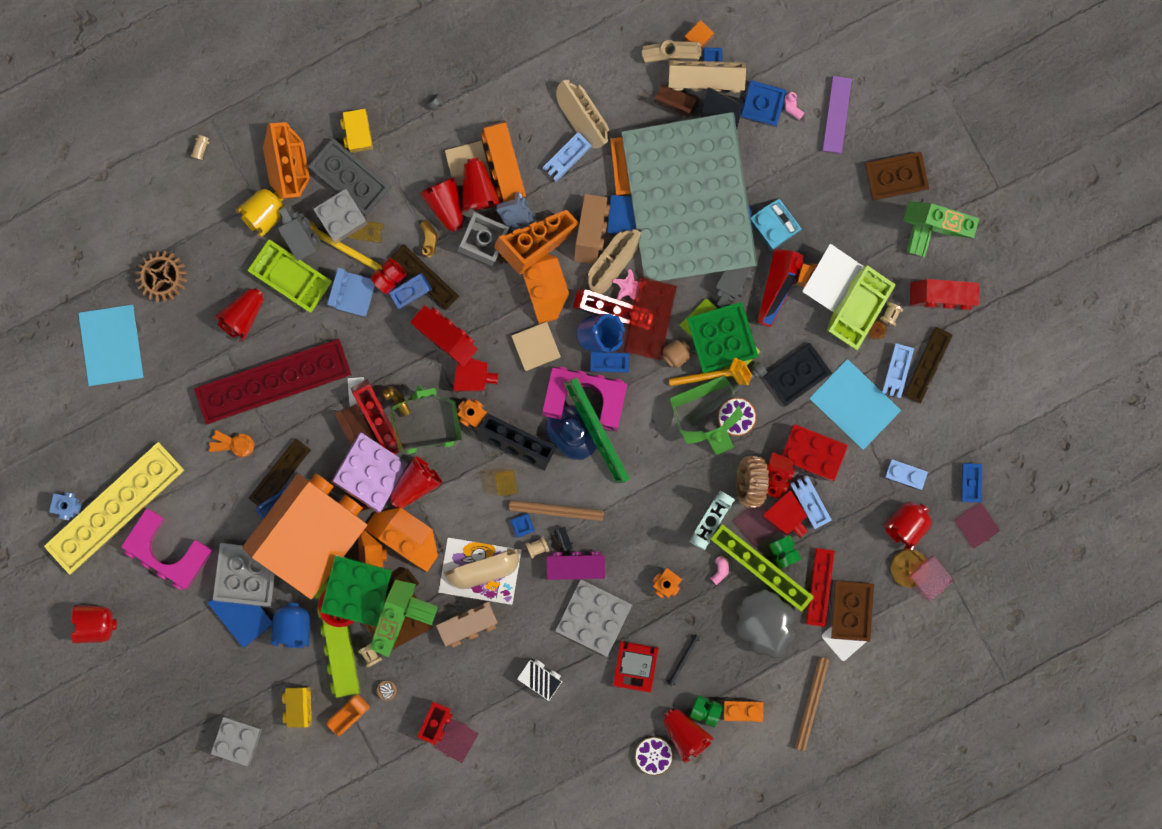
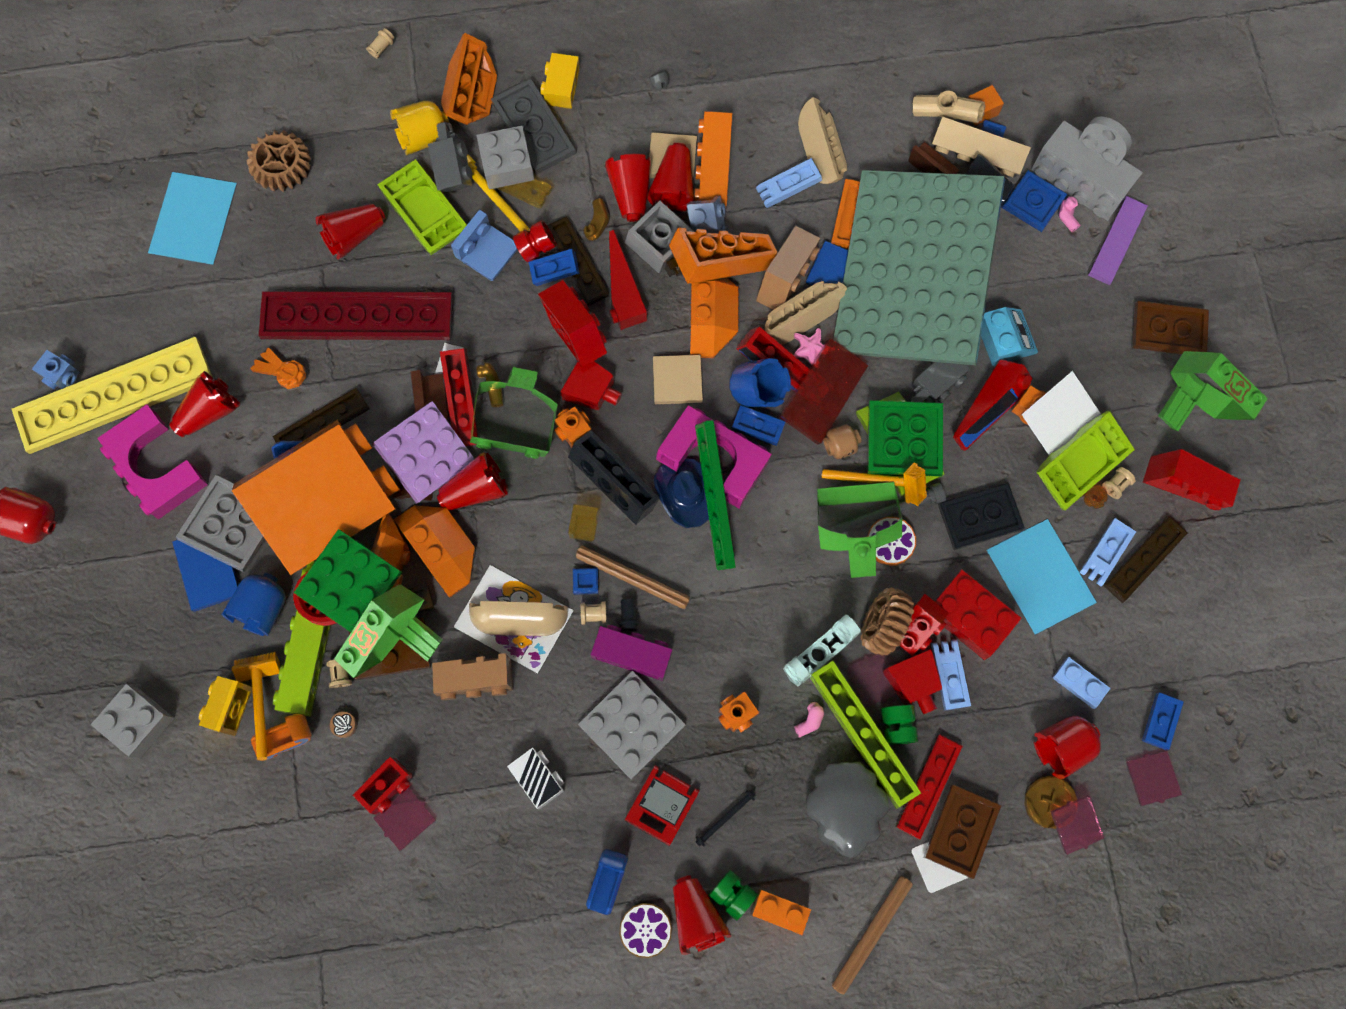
camera: 20 degrees right, 10 degrees down
(188, 493) = (203, 405): none -> red cone
(308, 674) = (255, 669): none -> light orange piece
(474, 297) = (625, 297): none -> red slope
(615, 733) = (607, 881): none -> blue animal
(795, 67) = (1090, 164): none -> light grey brick

